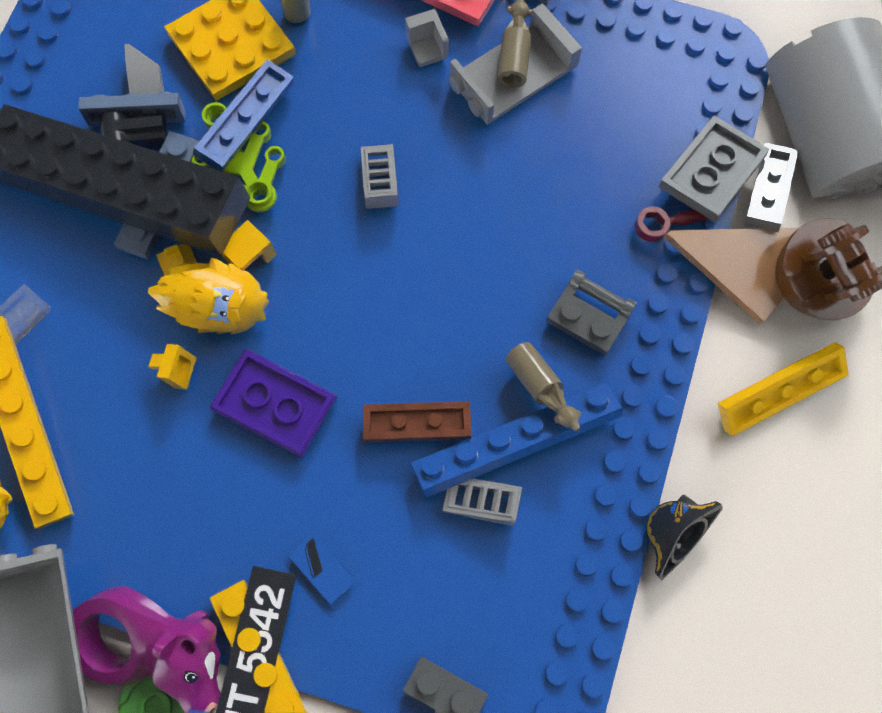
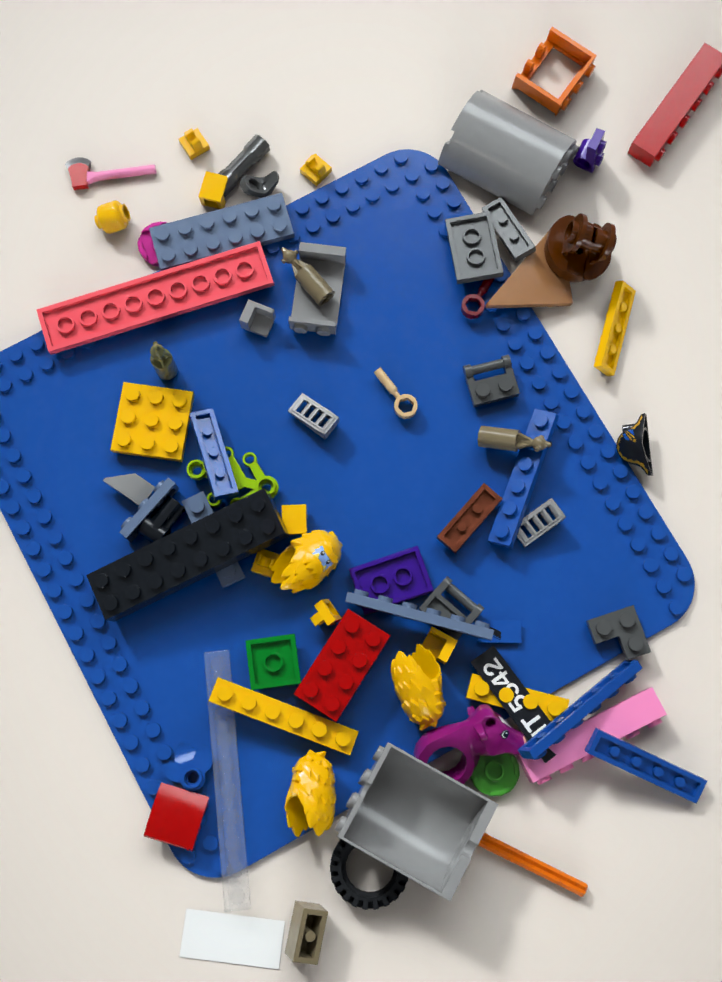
camera: 45 degrees left, 5 degrees up
(74, 361) = (273, 662): none -> green plate
(126, 432) = (342, 665): none -> red brick
(166, 542) = (419, 686): none -> yellow head
(243, 516) = (439, 644): none -> yellow panel
(259, 474) = (430, 617): none -> sand blue plate
(285, 492) = (438, 602): none -> dark grey plate
(482, 226) = (392, 389): none -> tan piece

